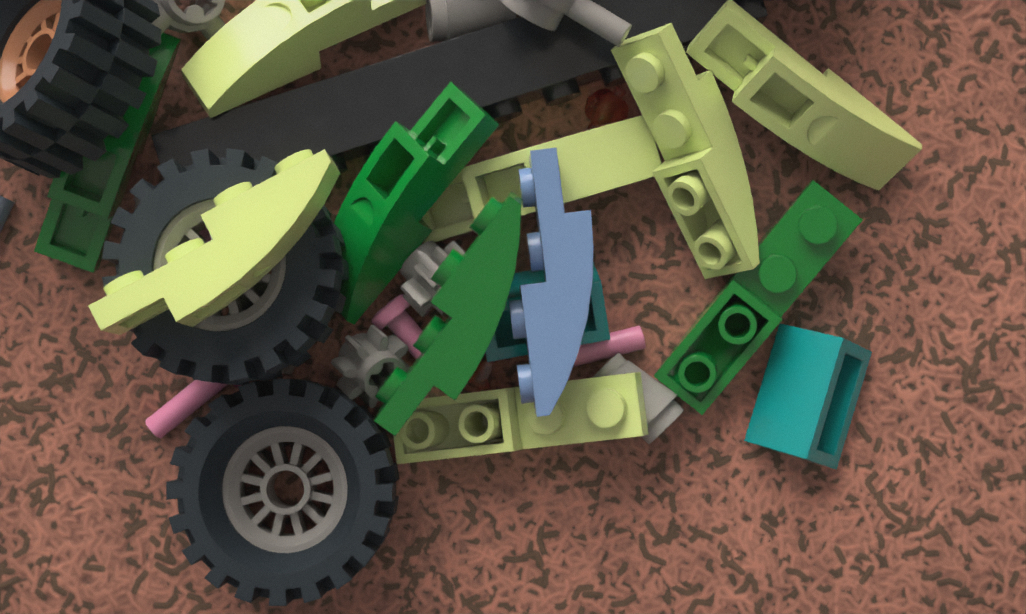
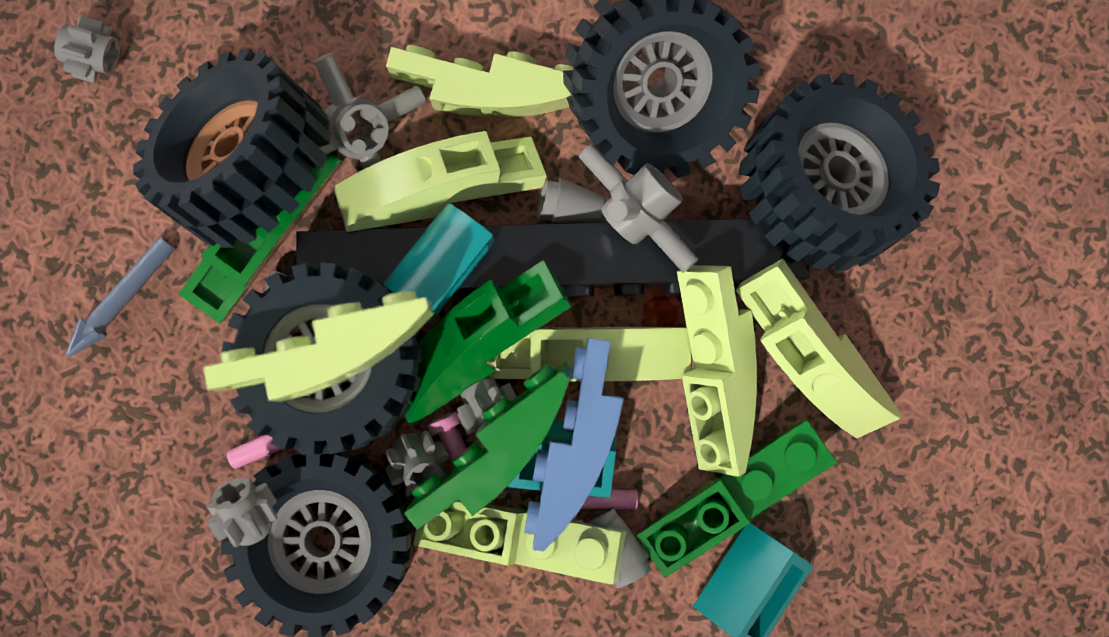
camera: 10 degrees right, 0 degrees up
(183, 472) = (241, 511): none -> light grey gear
(335, 109) = (442, 258): none -> teal brick

